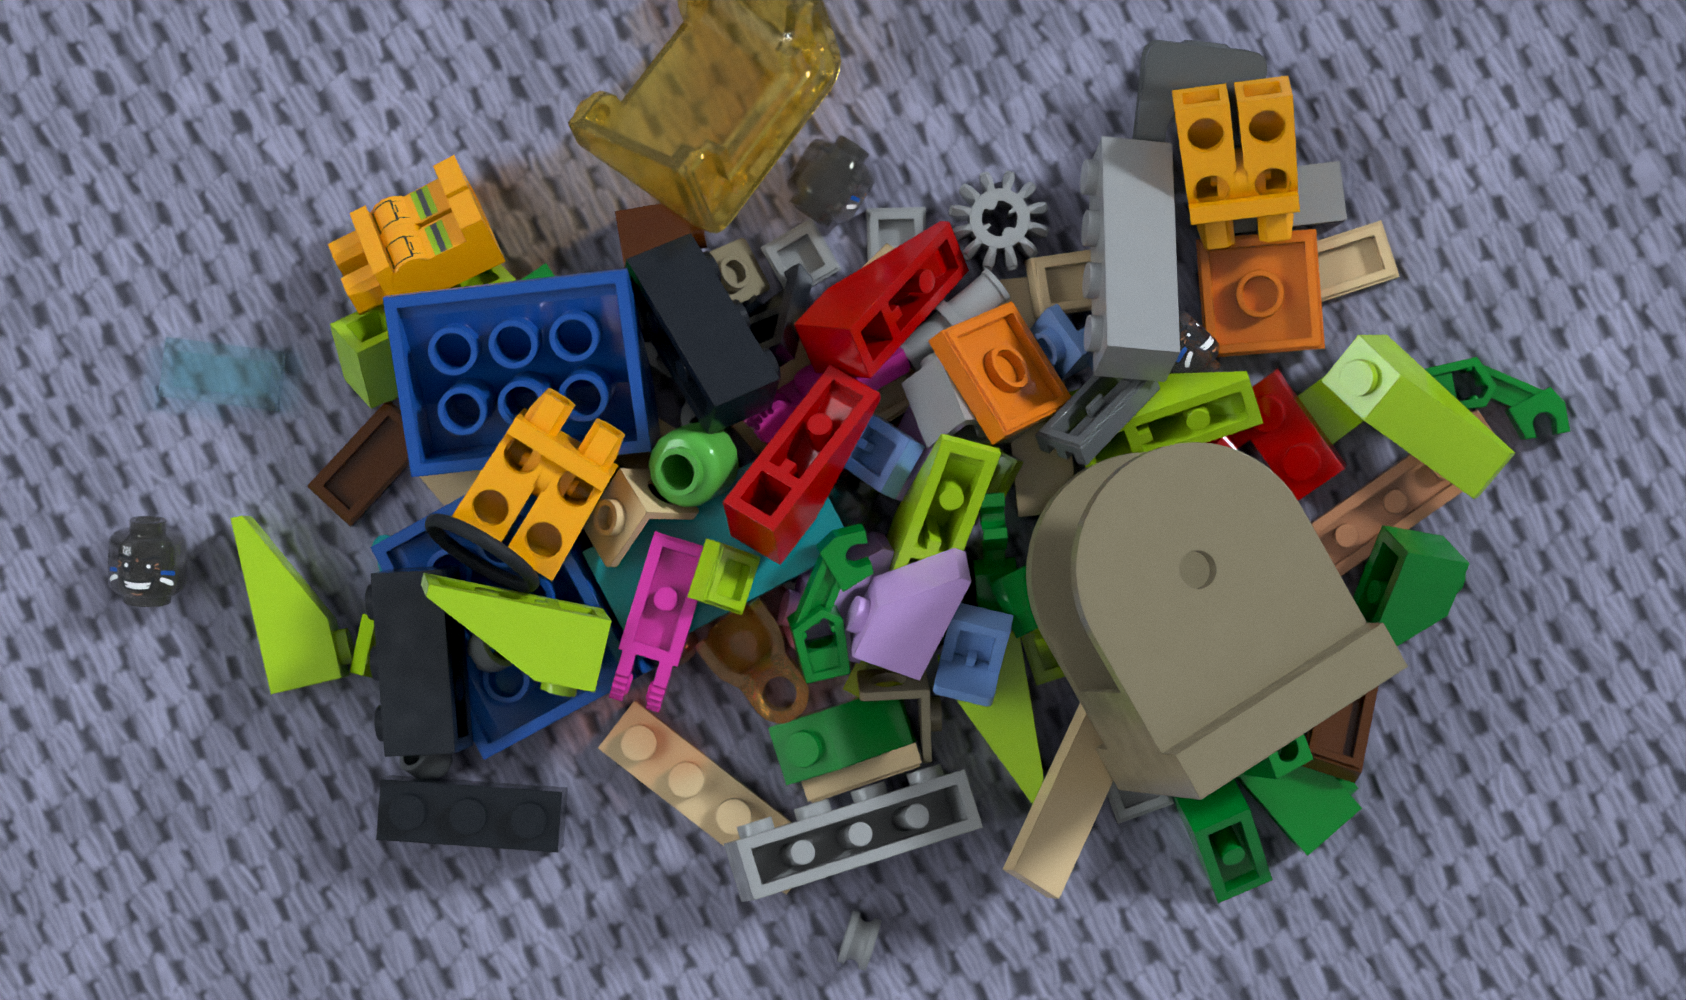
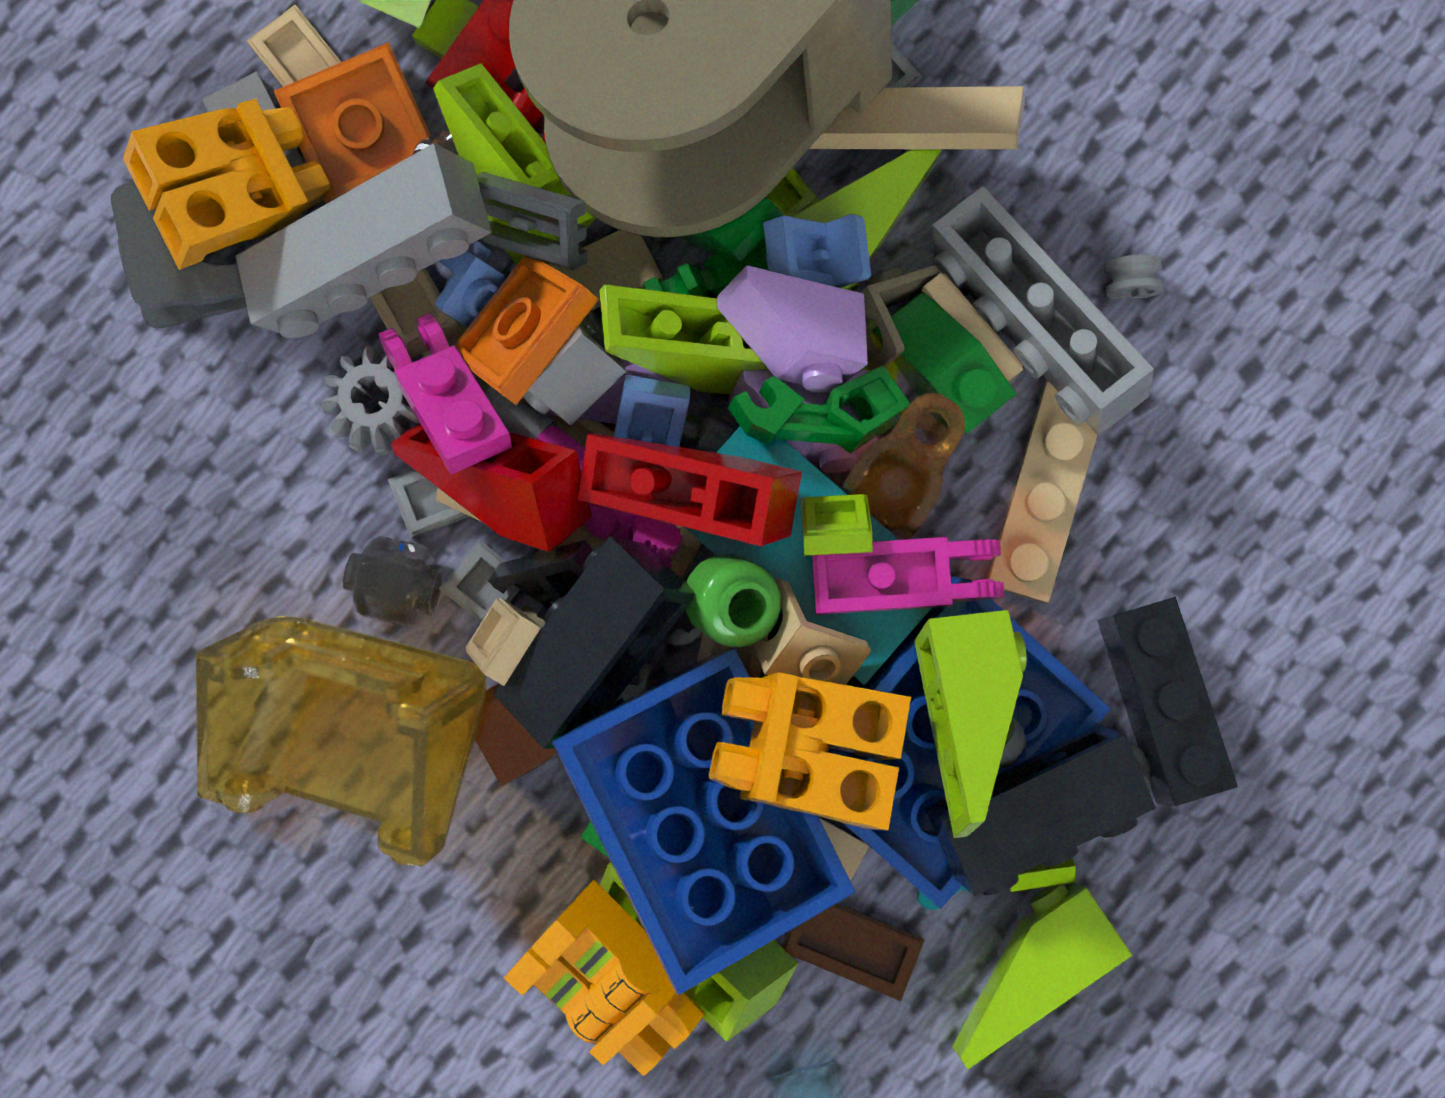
camera: 110 degrees left, 5 degrees down
(437, 522) = (903, 823): black tyre -> none
(738, 256) = (501, 640): none -> tan tile
(963, 284) = (446, 398): none -> dark pink hinge

